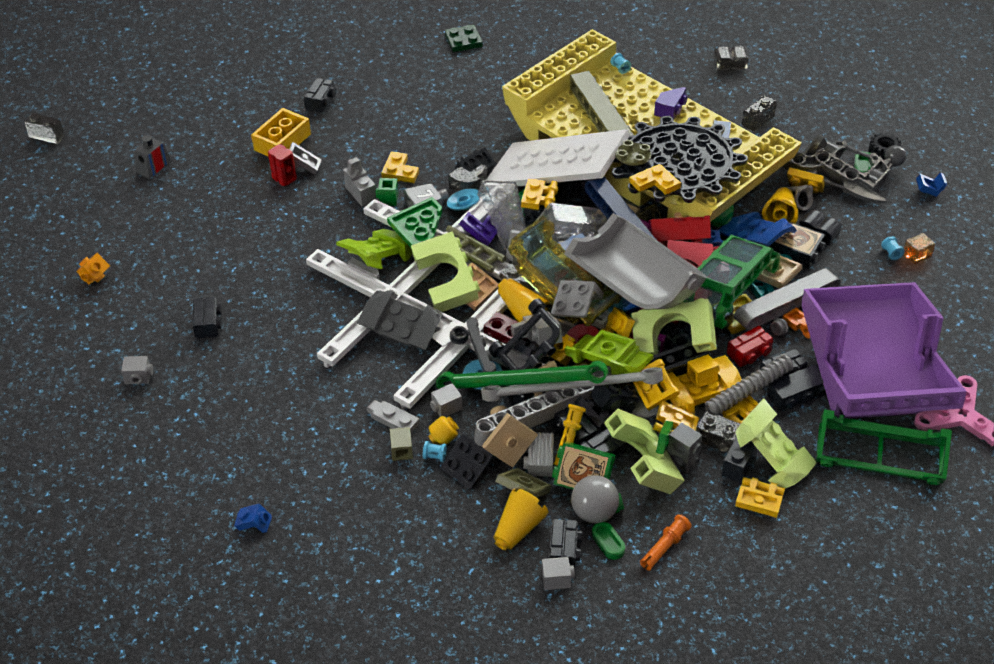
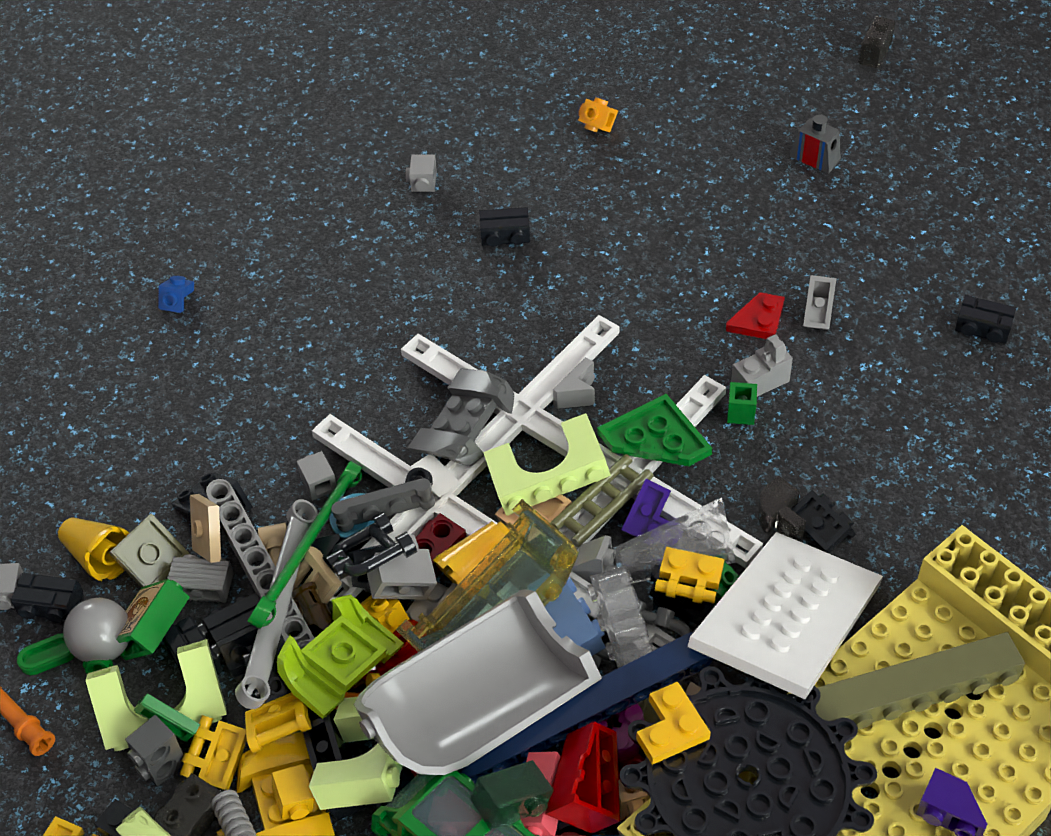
camera: 95 degrees right, 5 degrees up
(281, 129) = (875, 275): yellow brick -> none
(282, 165) = (795, 276): red brick -> none
(306, 191) = (758, 317): none -> red wing
(380, 245) = (604, 377): lime piece -> none
(392, 415) = (299, 428): light grey hinge -> none
(396, 168) = (816, 419): yellow plate -> none
(401, 444) = (253, 426): brick -> none
(420, 193) = (731, 453): torso -> none
(434, 451) = (234, 462): medium azure bush -> none
(443, 430) = (262, 469): yellow head -> none
(463, 199) = (737, 500): medium azure dish -> none
(571, 425) = (217, 603): yellow pin -> none
(575, 298) = (440, 604): light grey bracket -> none
(633, 153) = (746, 696): olive dish -> none
(707, 244) = (511, 795): none -> clear green brick

